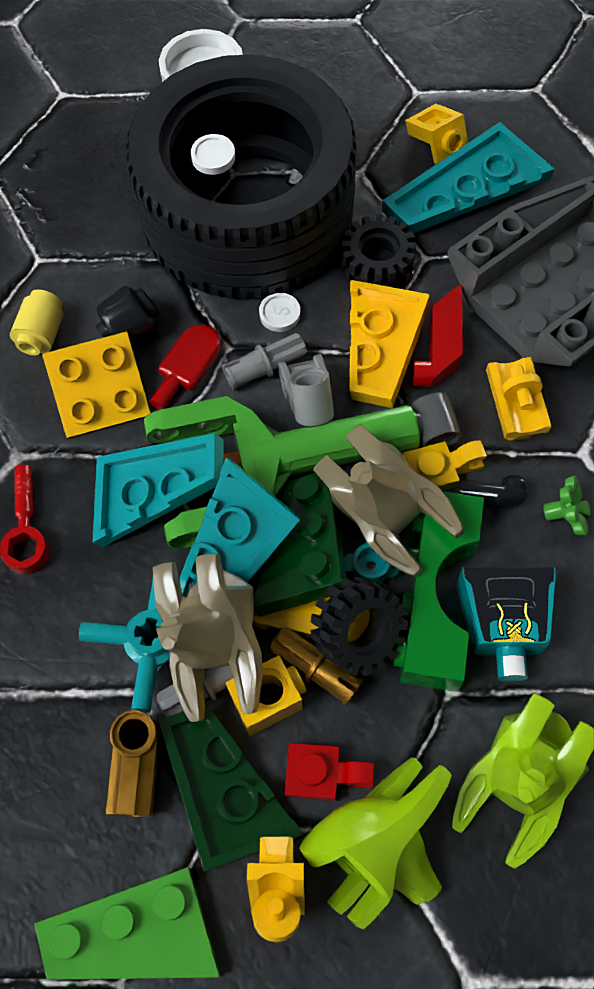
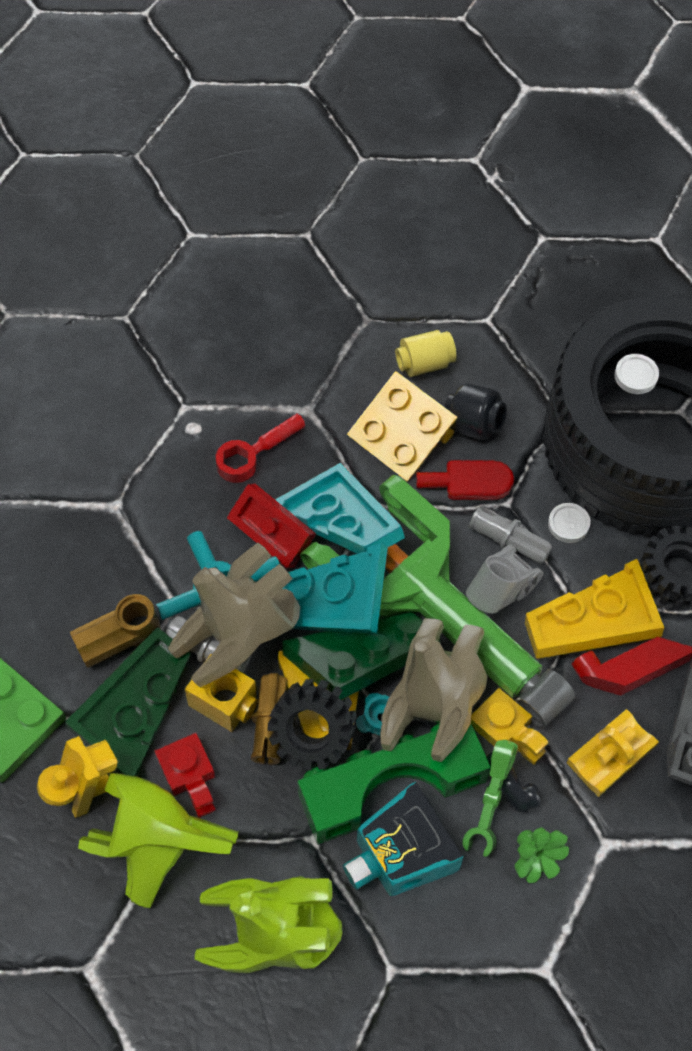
camera: 55 degrees right, 5 degrees down
(118, 554) = (271, 525): none -> red plate
(486, 484) = (501, 763): none -> bright green piece

